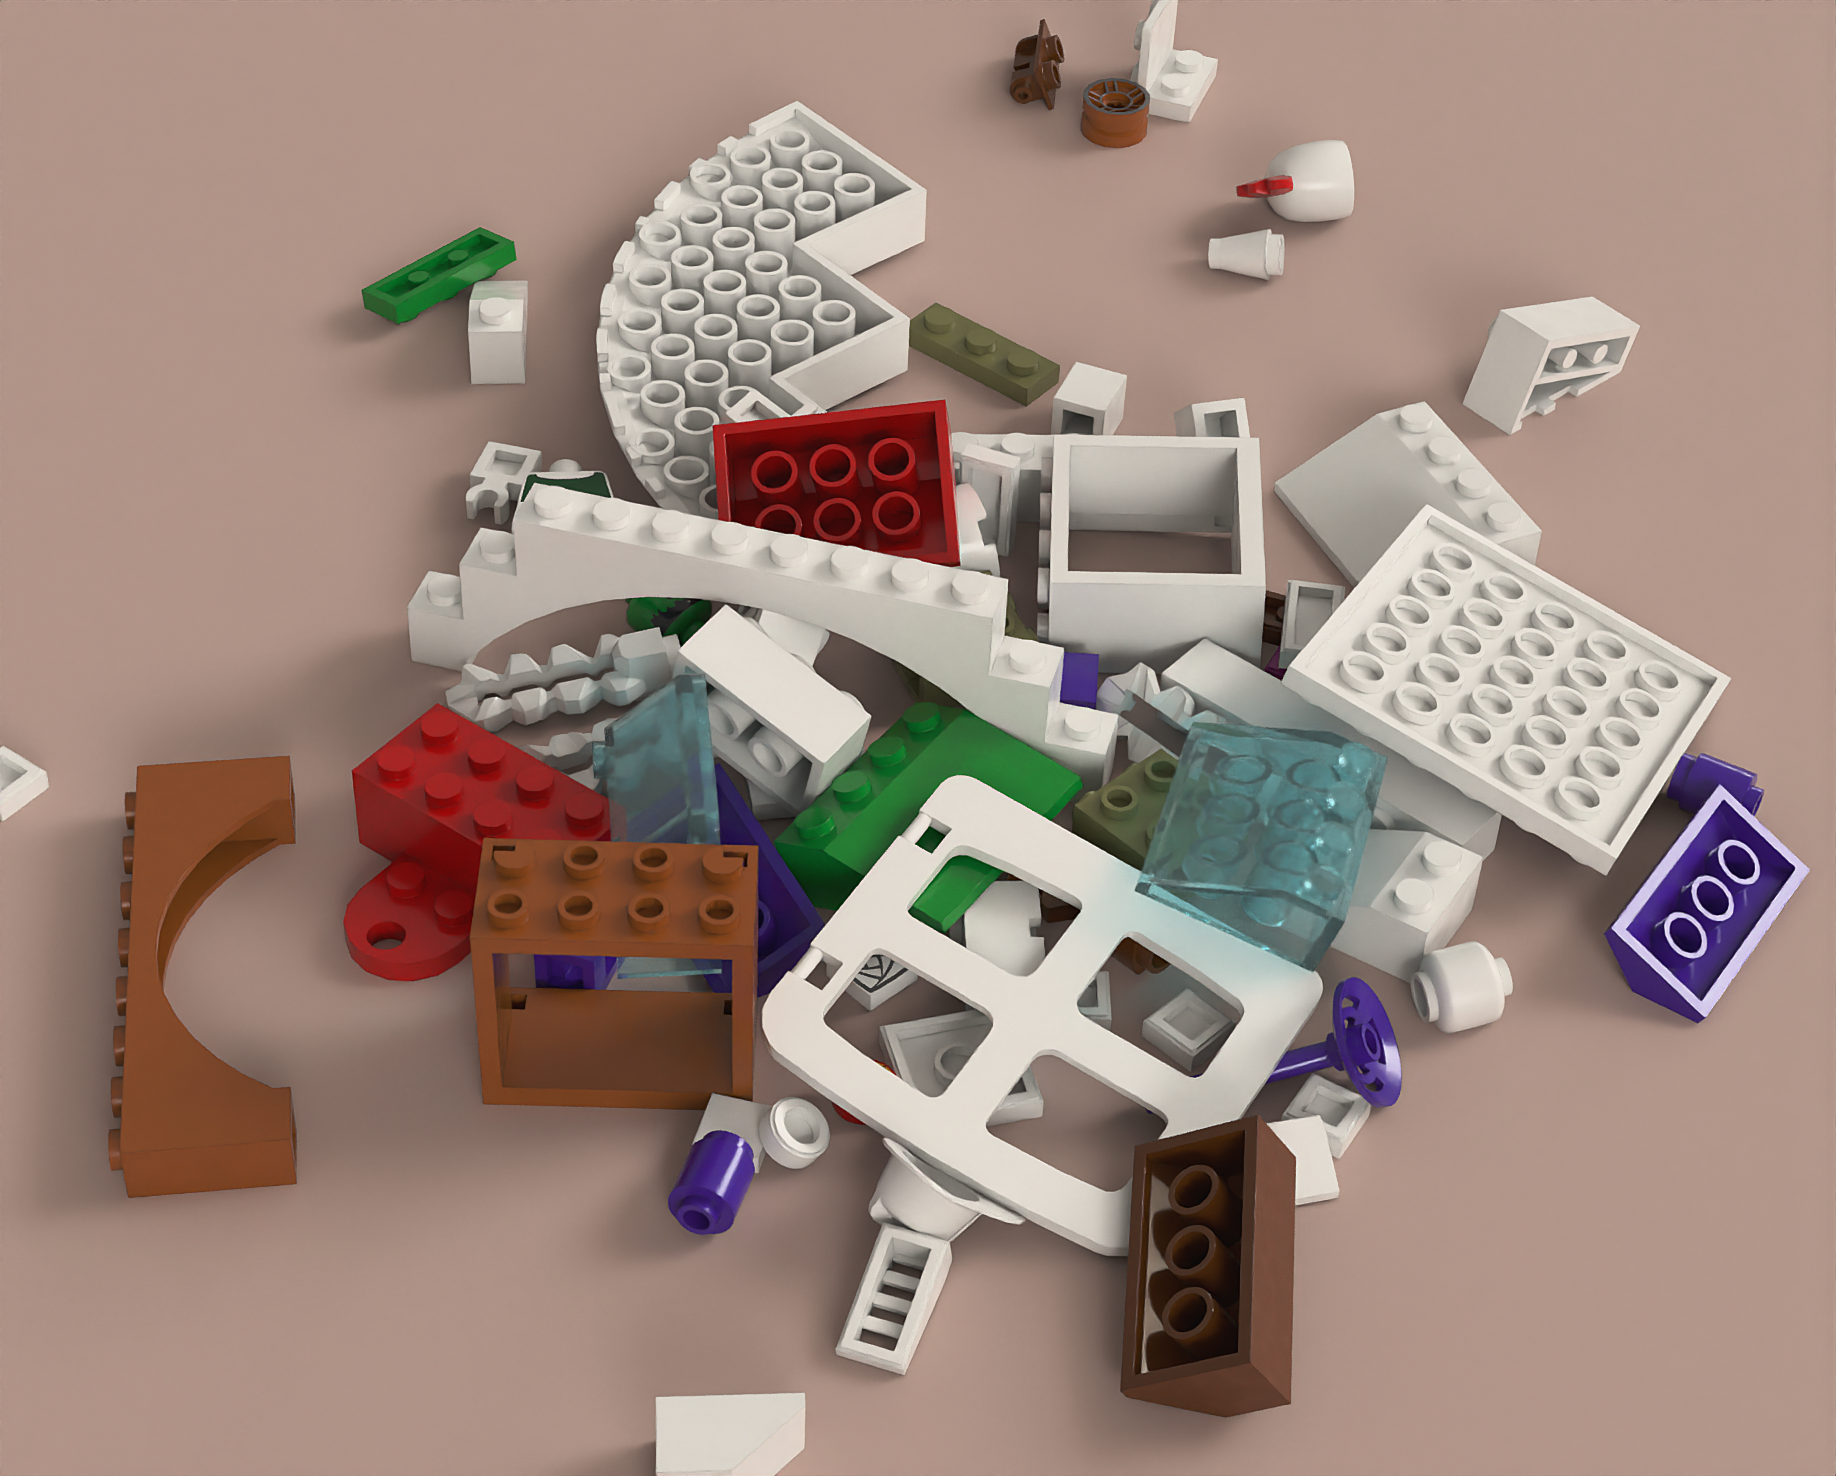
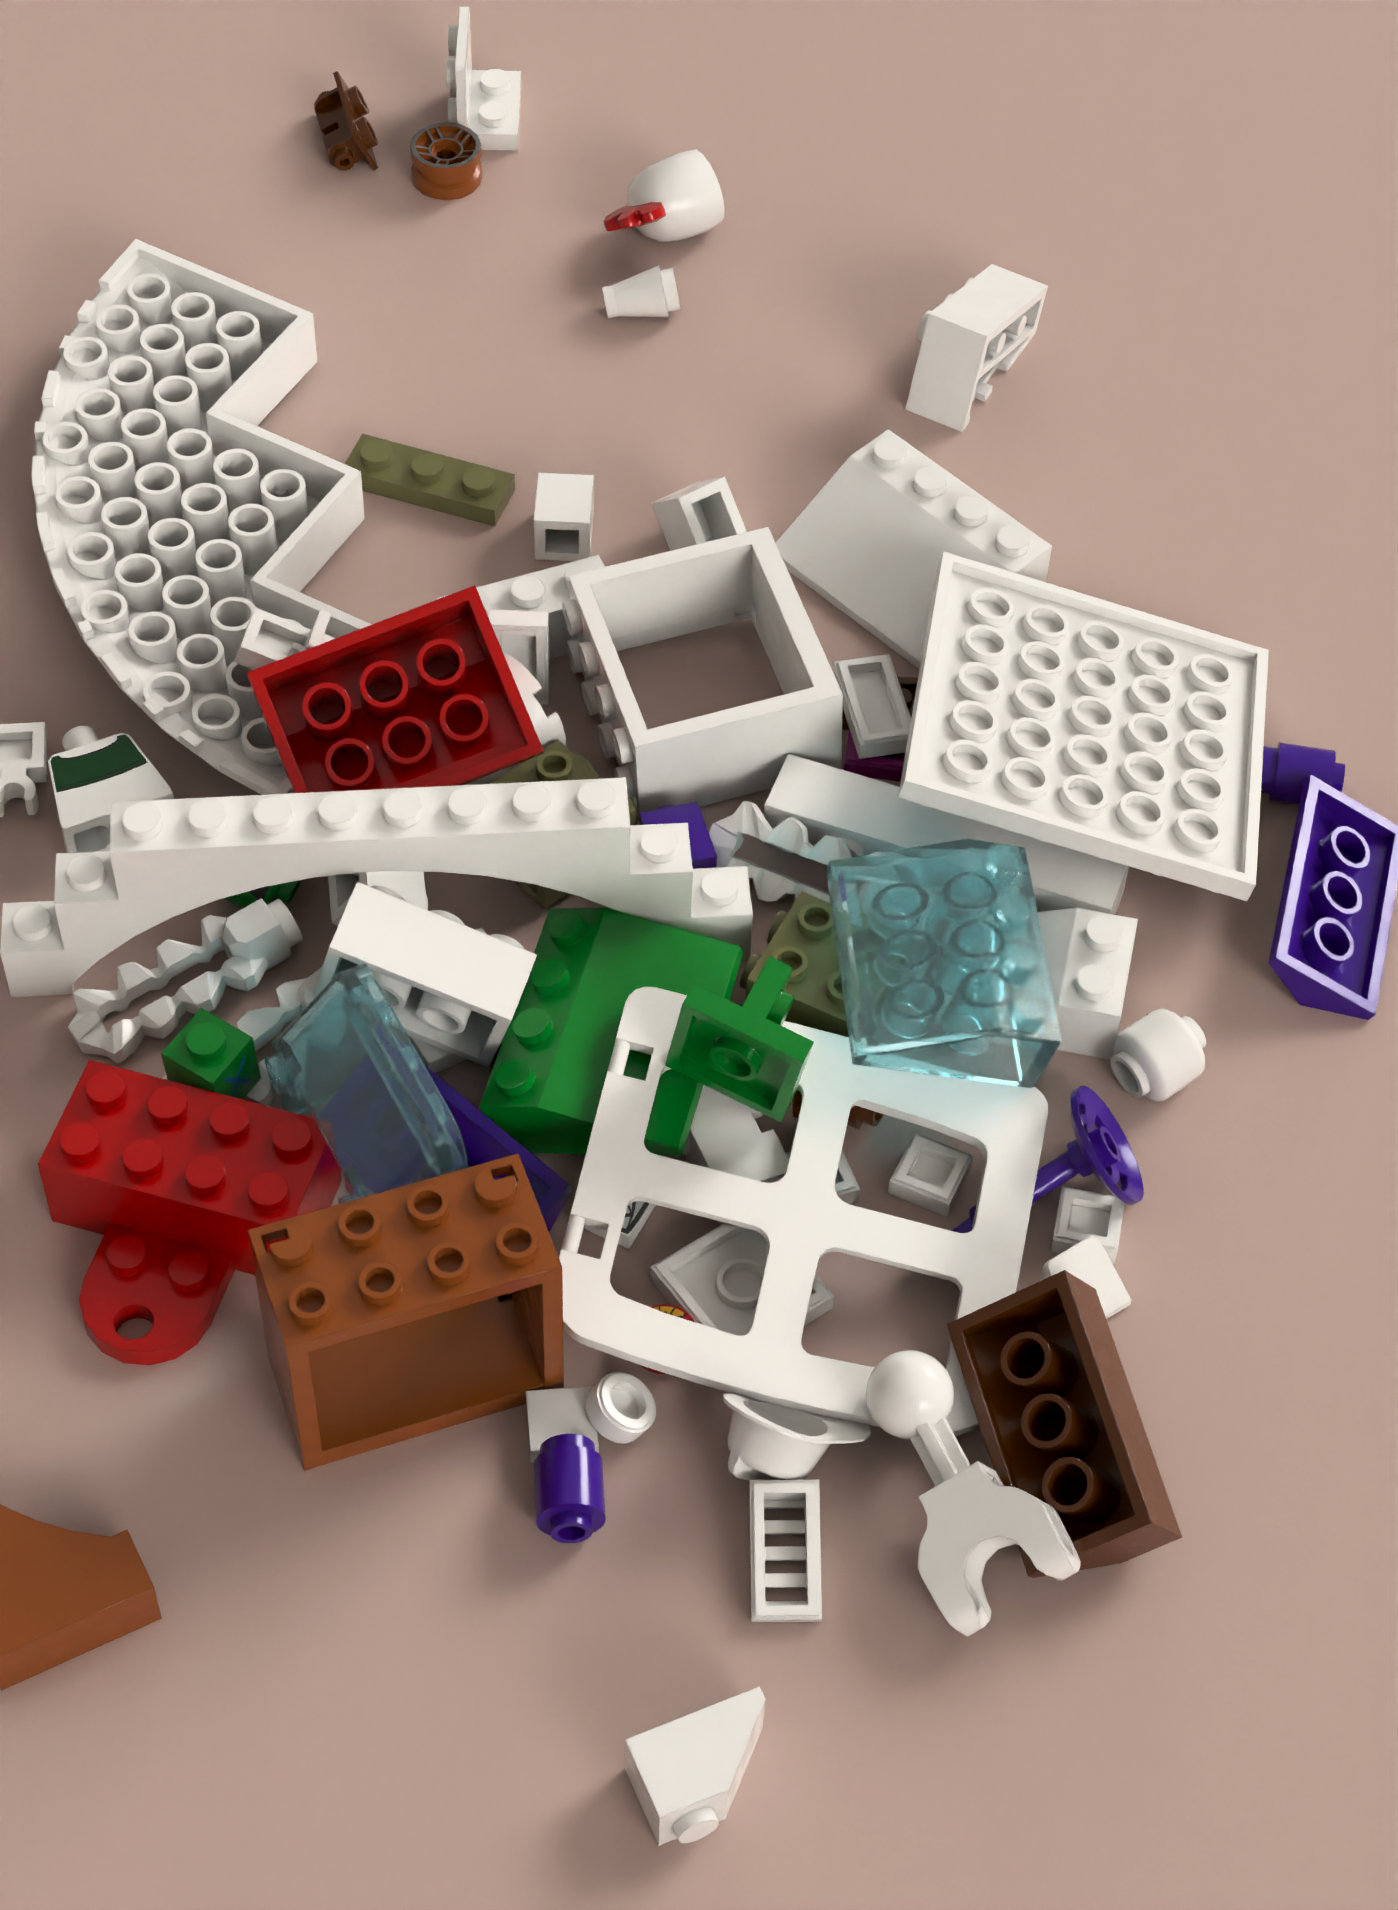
camera: 20 degrees left, 10 degrees up
(551, 732) = (212, 1057): none -> green brick
(1027, 834) = (745, 1046): none -> green bracket
(1082, 1305) = (969, 1506): none -> white piece

